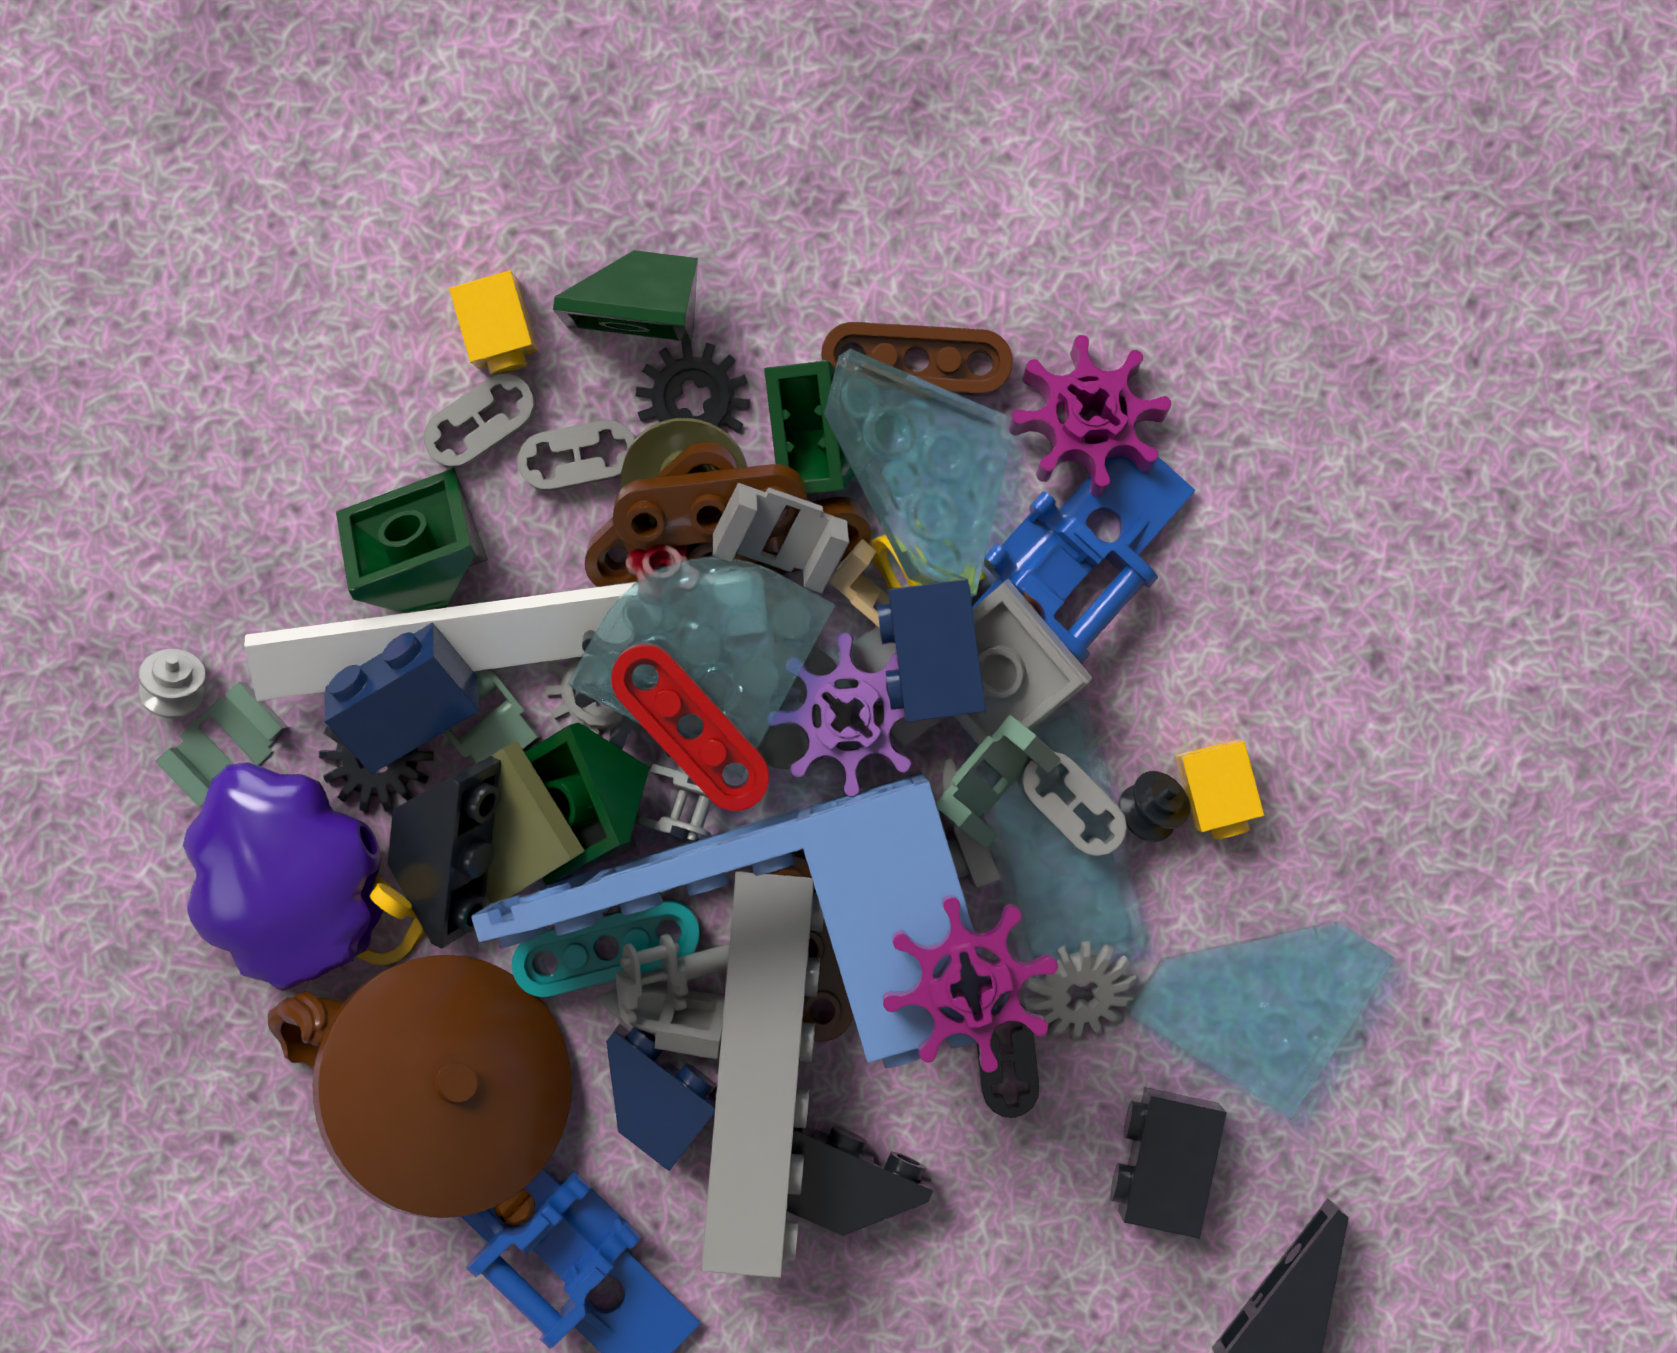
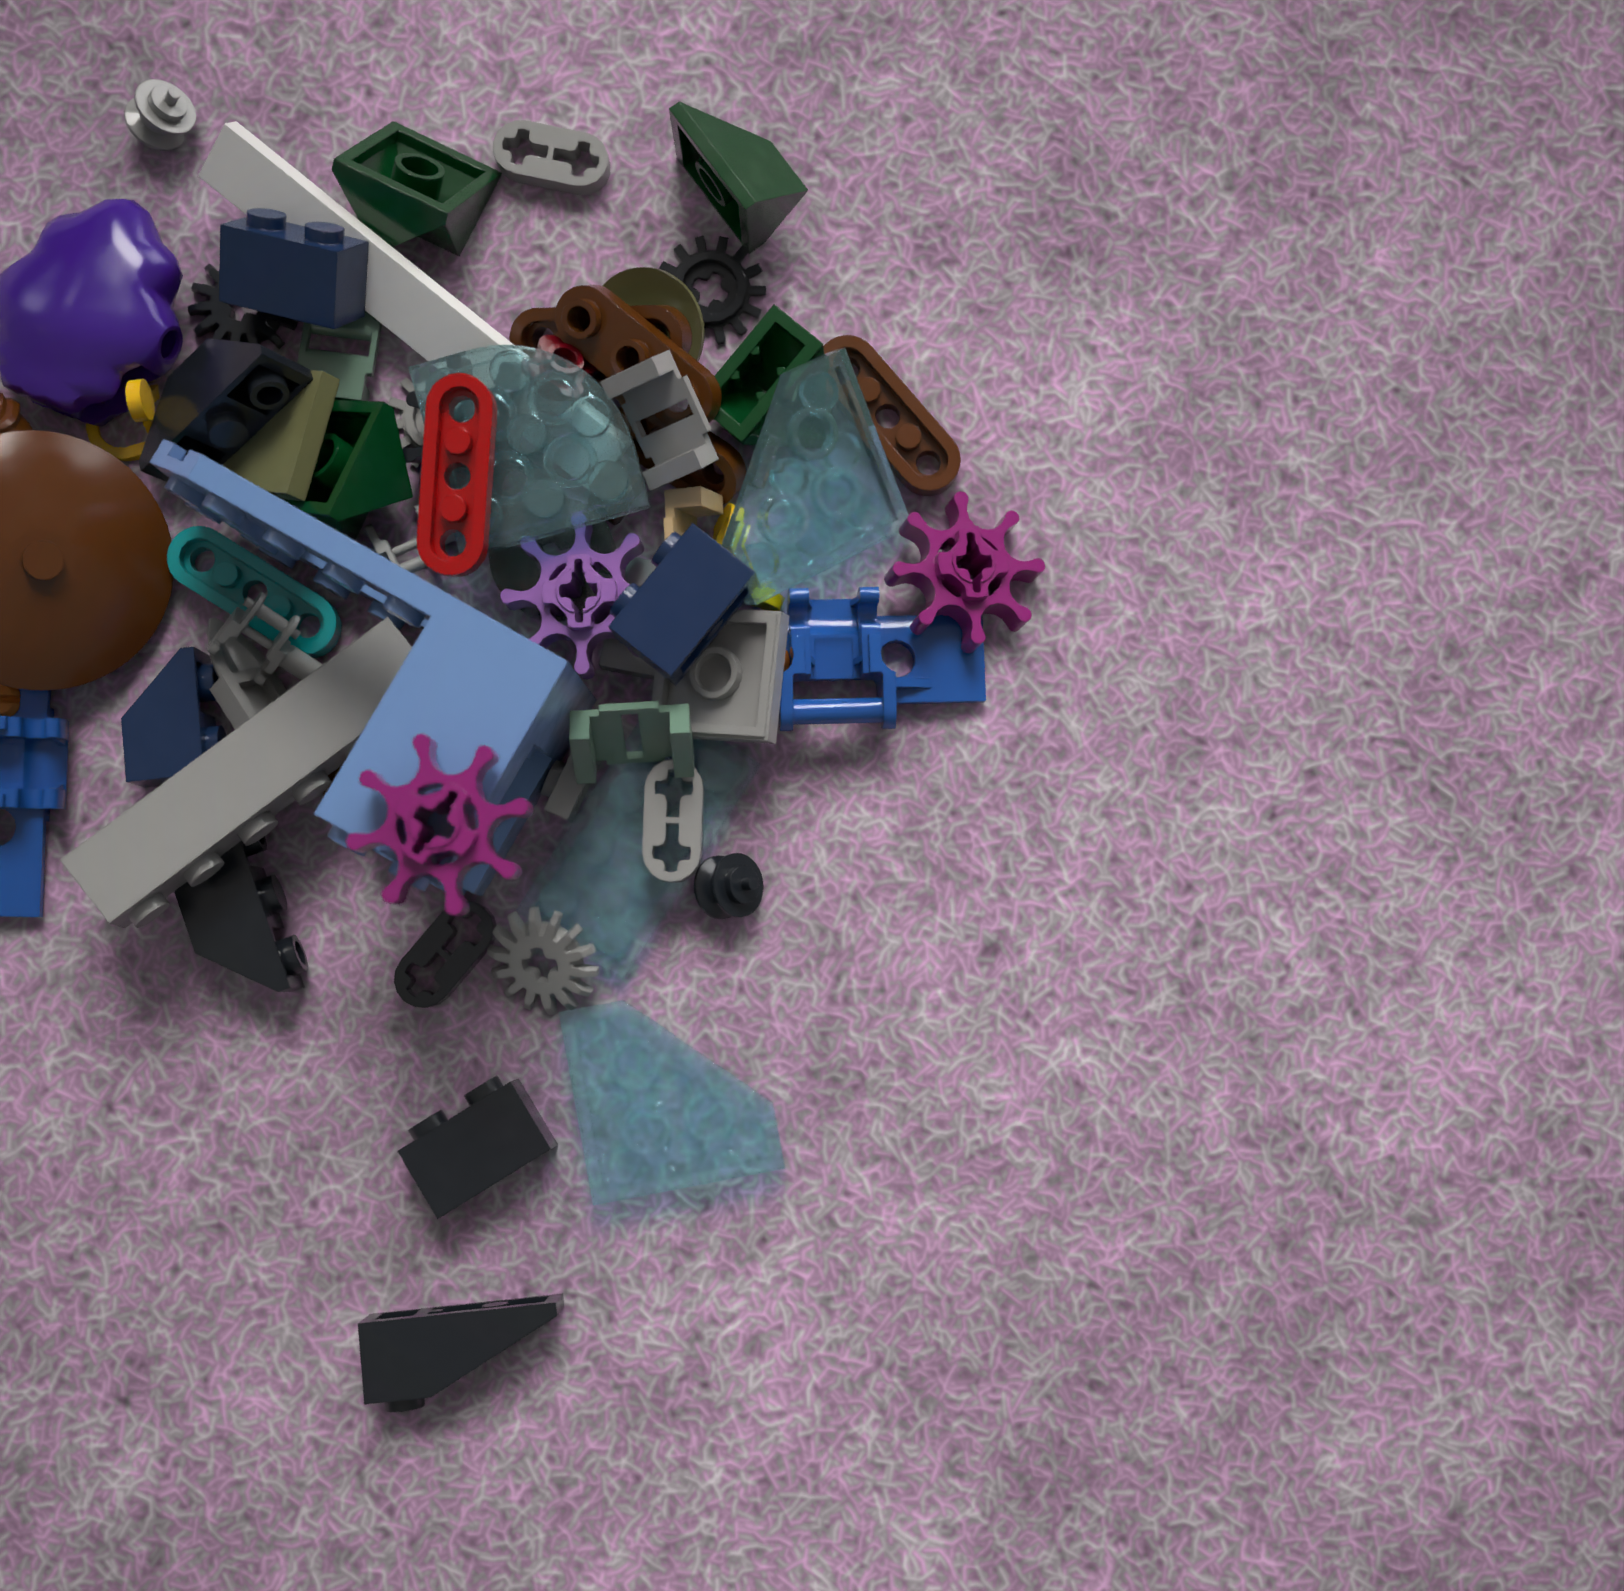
camera: 45 degrees right, 5 degrees down
(199, 760) = (183, 197): sand green piece -> none
(494, 322) = (629, 99): yellow brick -> none
(573, 440) = (598, 232): light grey beam -> none
(1220, 788) = (786, 920): yellow brick -> none

